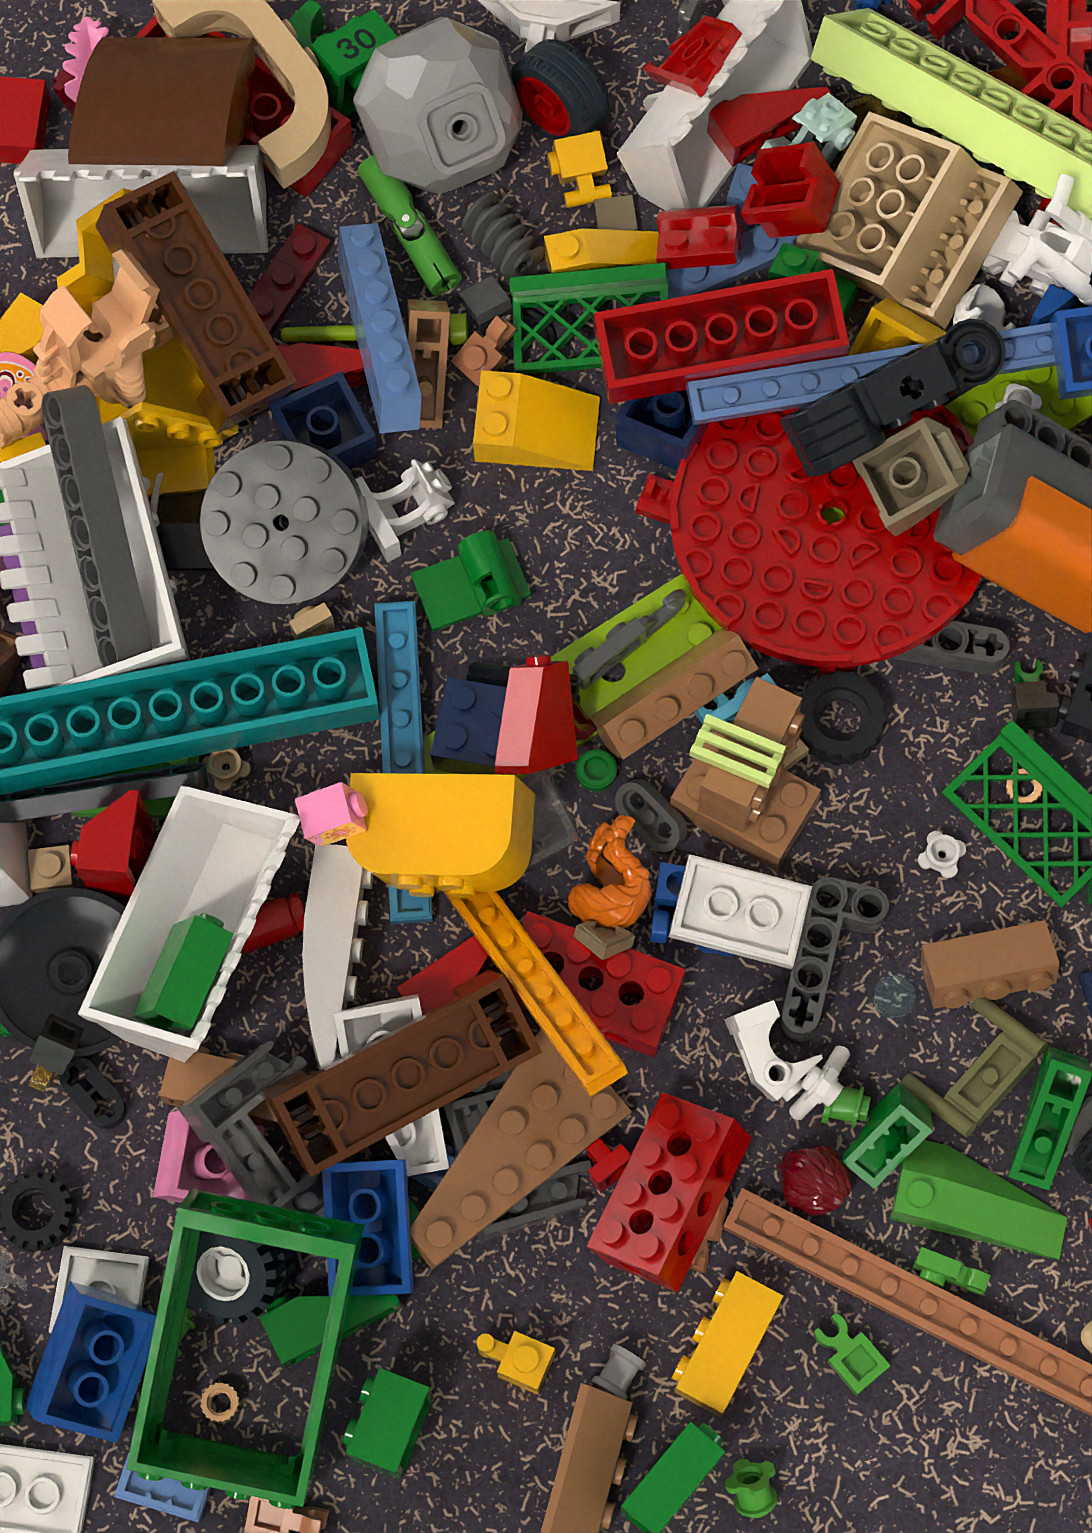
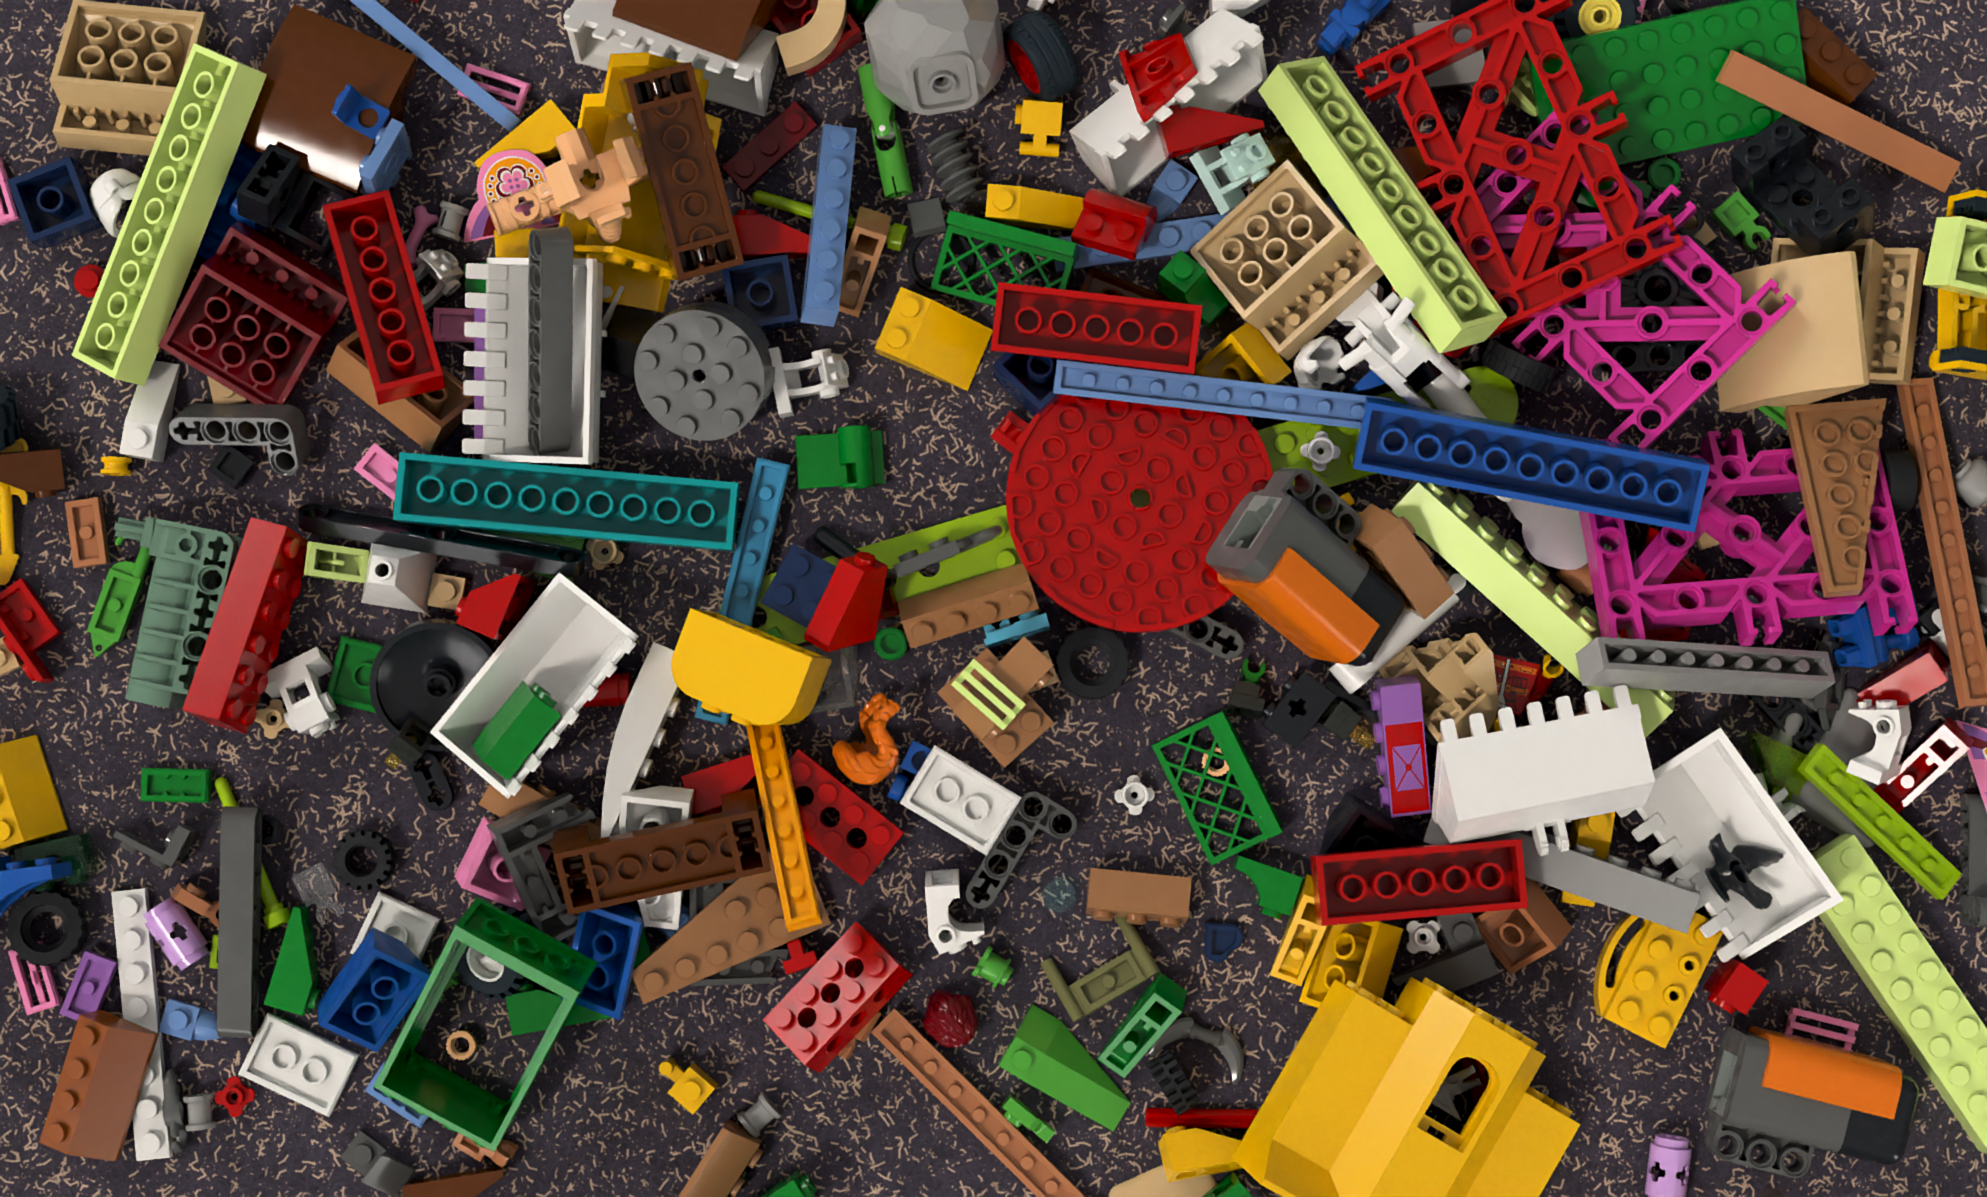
camera: 15 degrees right, 15 degrees up
(312, 622) = (703, 455): tan plate -> none
(332, 814) = (664, 640): bright pink brick -> none
(388, 1423) = (576, 1107): green brick -> none
(483, 351) = (909, 265): nougat plate -> none
(603, 941) = (847, 793): dark tan tile -> none
(615, 213) = (1056, 175): dark tan tile -> none
(651, 816) = (920, 695): dark grey plate -> none
(726, 1343) = (845, 1119): yellow brick -> none
(792, 191) = (1199, 211): red plate -> none
(820, 1084) = (976, 955): white piece -> none
(854, 416) = (1171, 435): black brick -> none
(855, 1359) = (936, 1159): bright green plate -> none
(889, 1136) = (1020, 1003): green arch -> none
(913, 473) = (1207, 498): dark tan slope -> none

